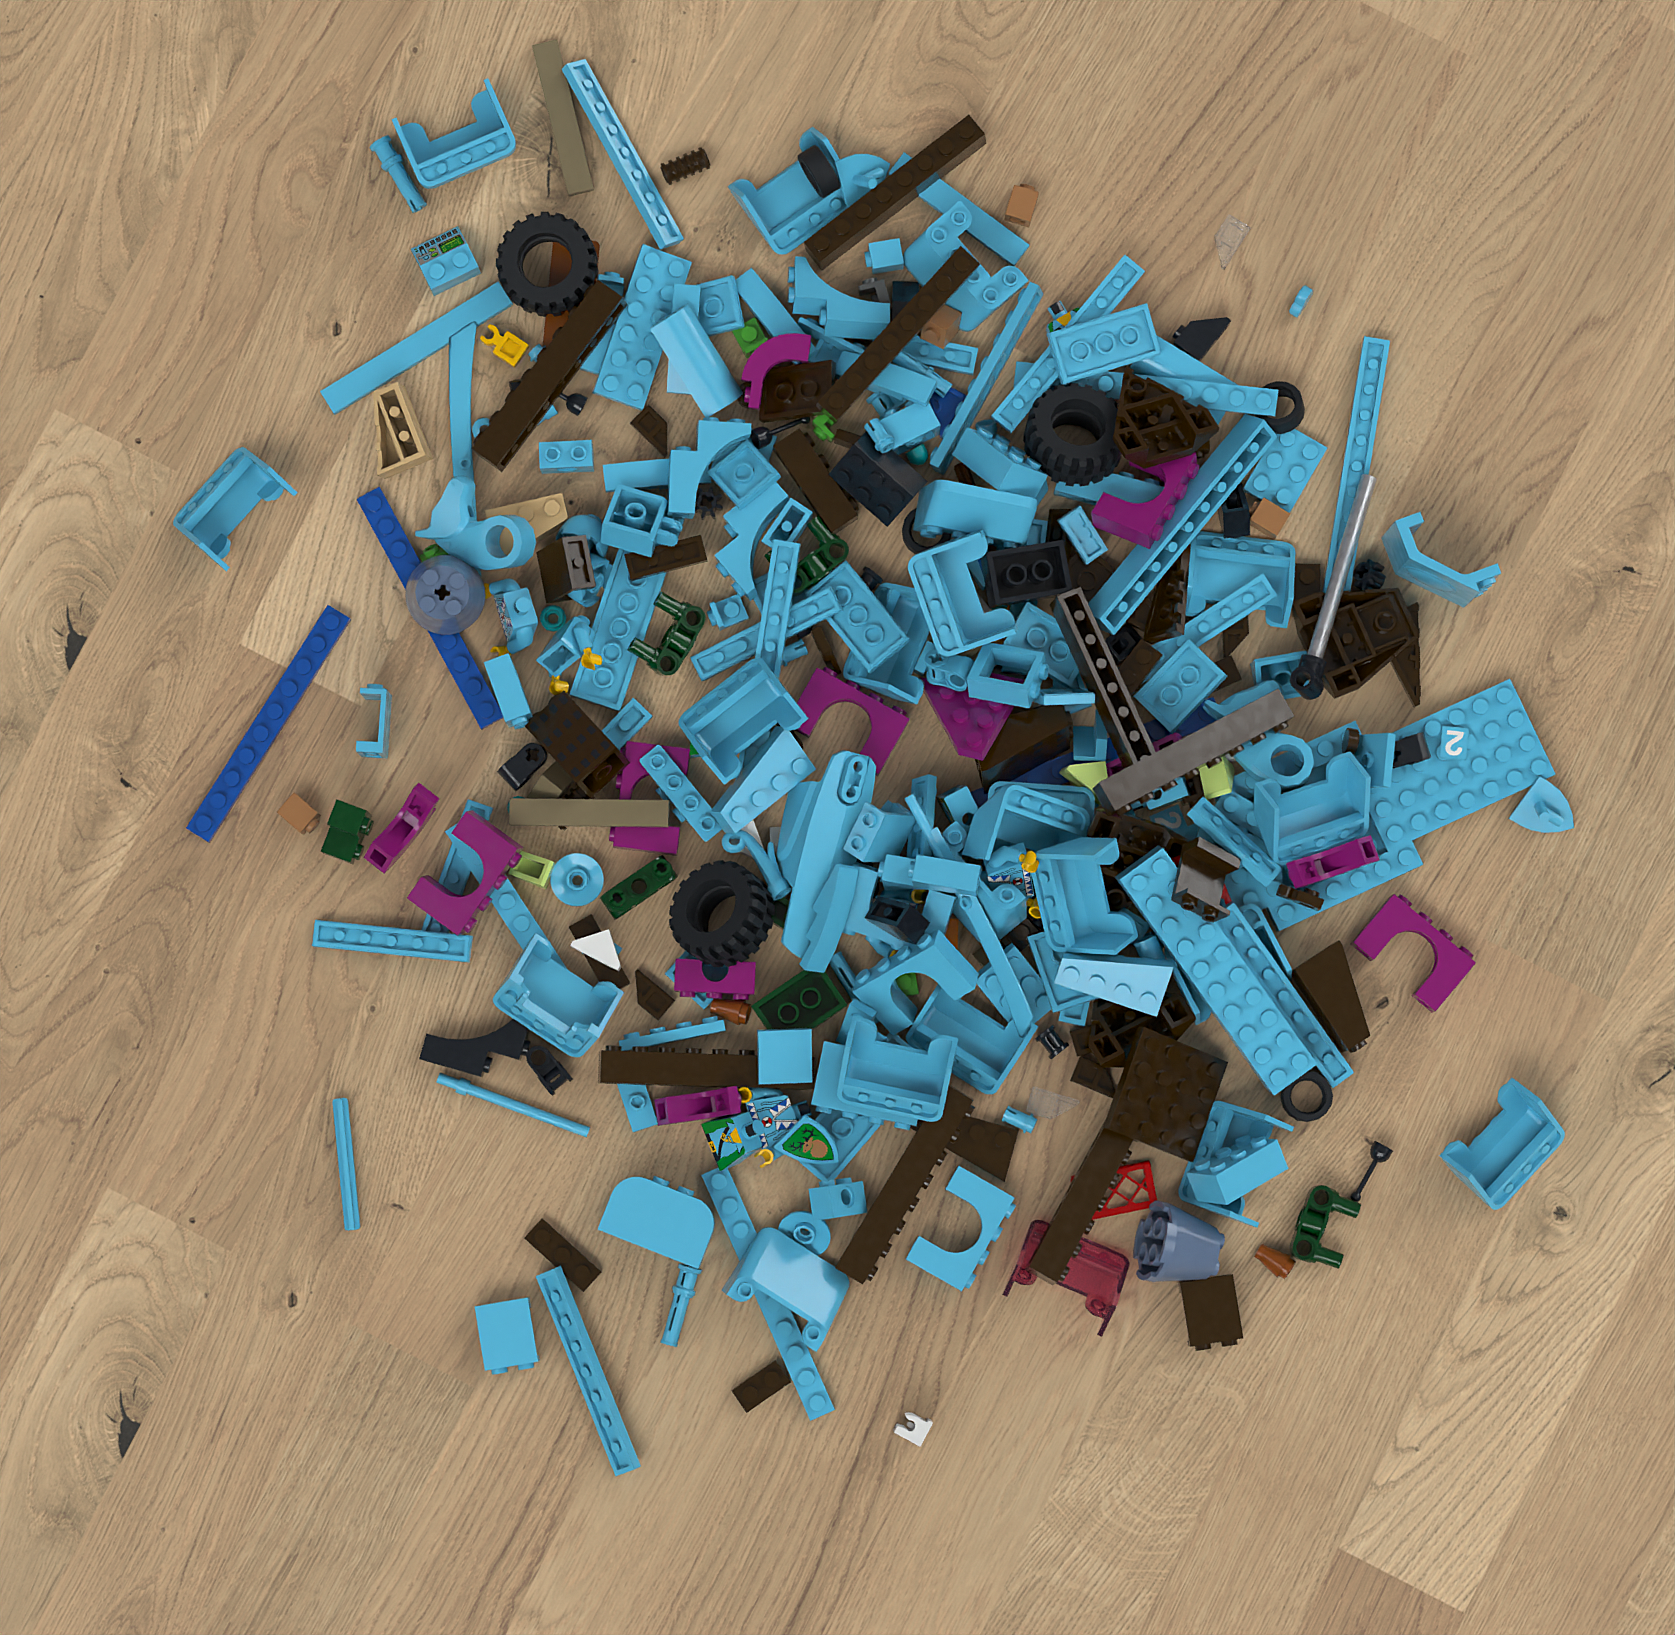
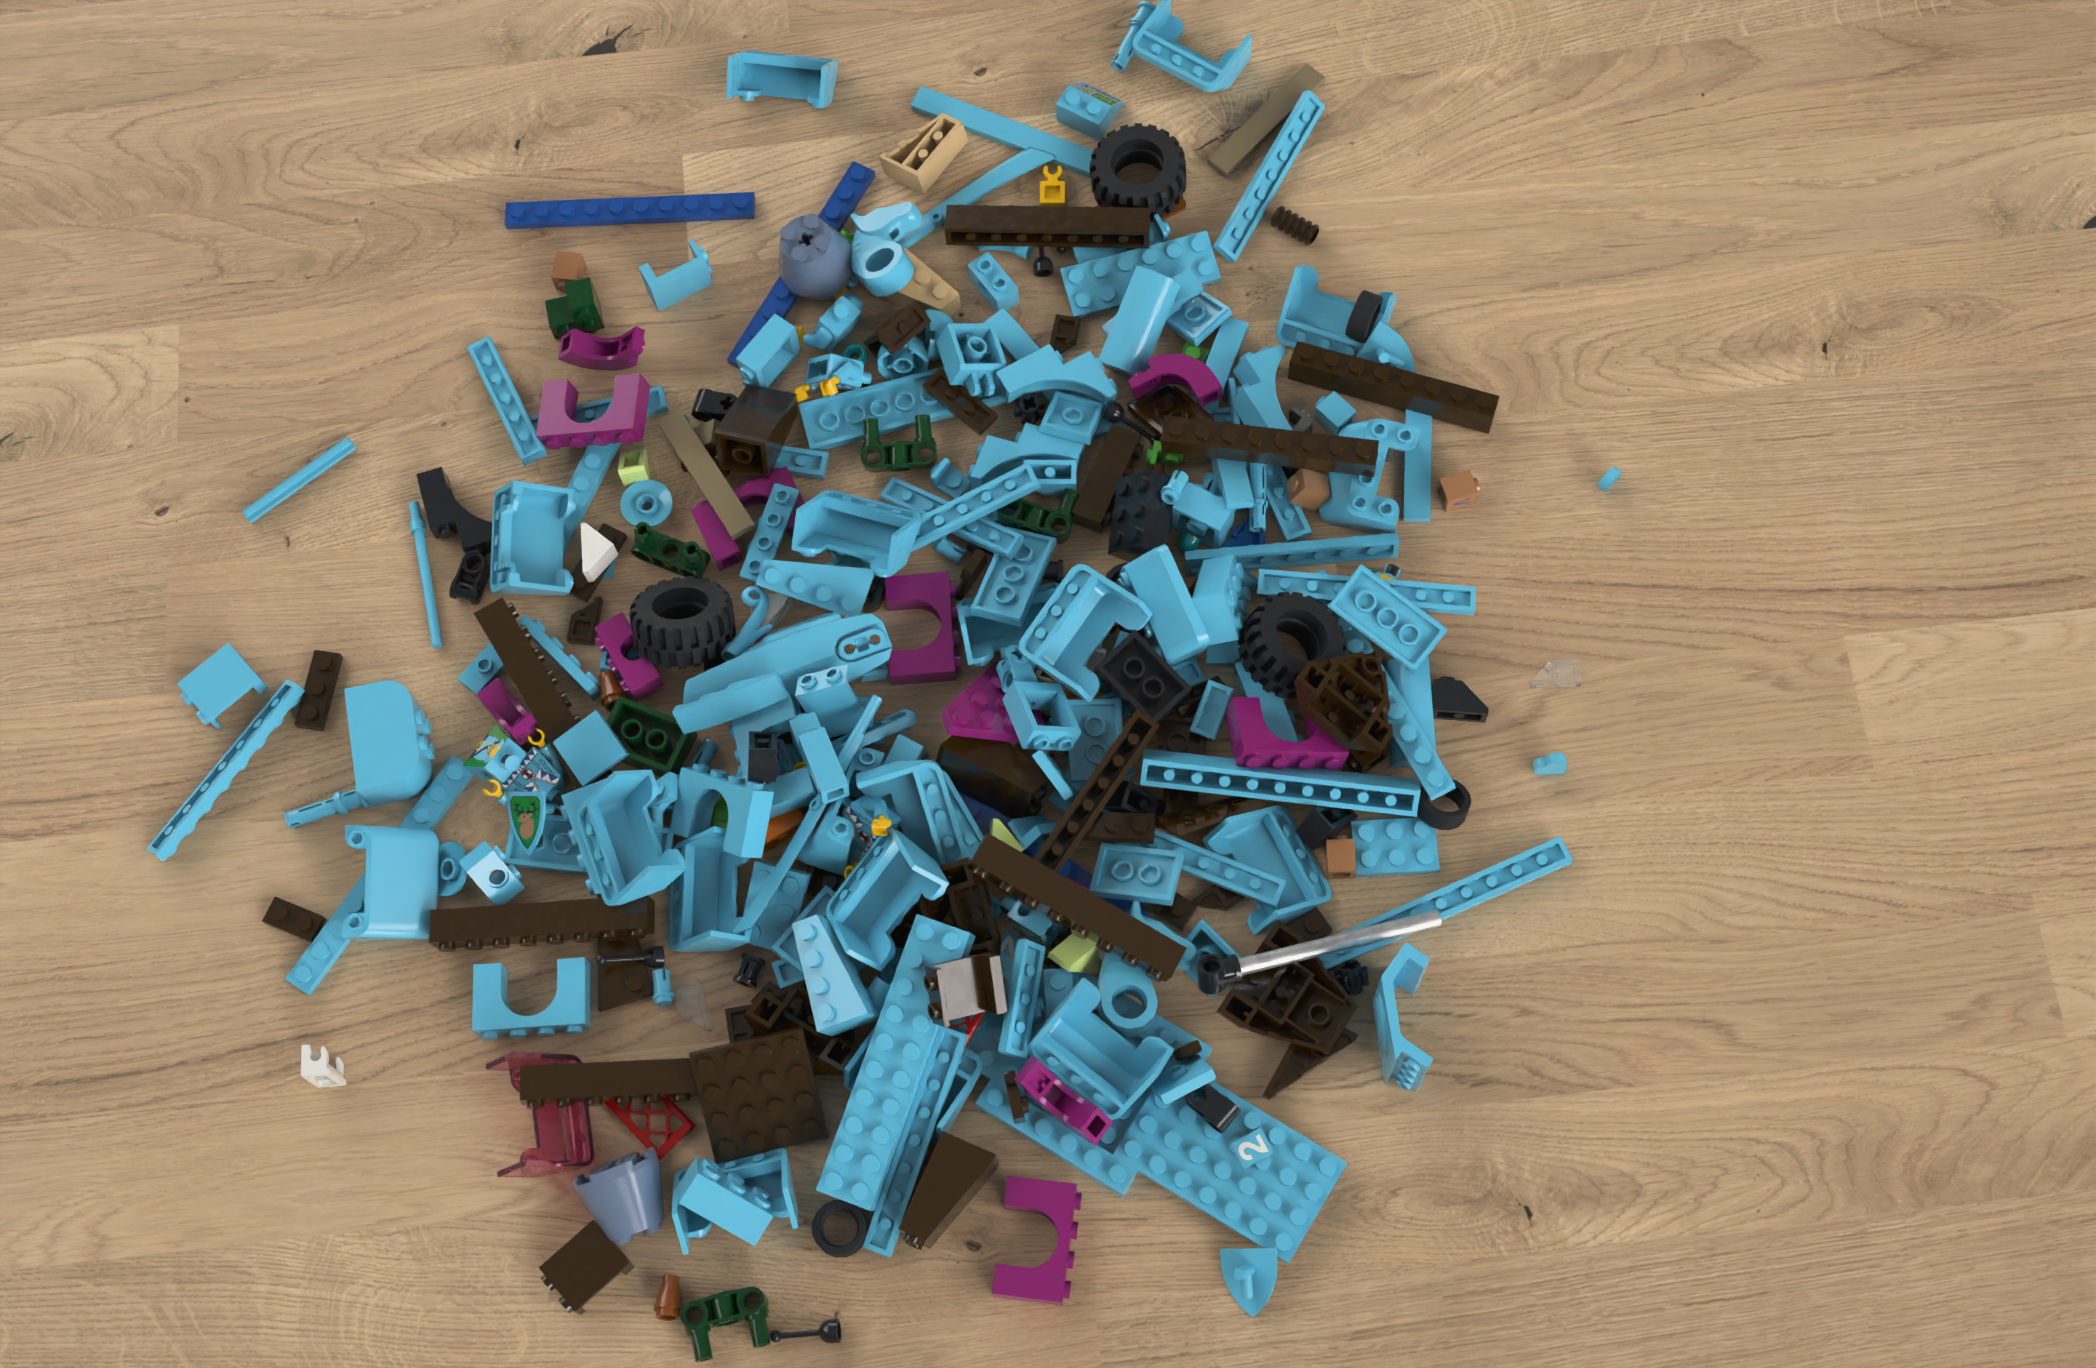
camera: 65 degrees right, 15 degrees down
(990, 1111) = (652, 957): none -> black hinge
(1093, 77) = (1609, 478): none -> medium azure tile

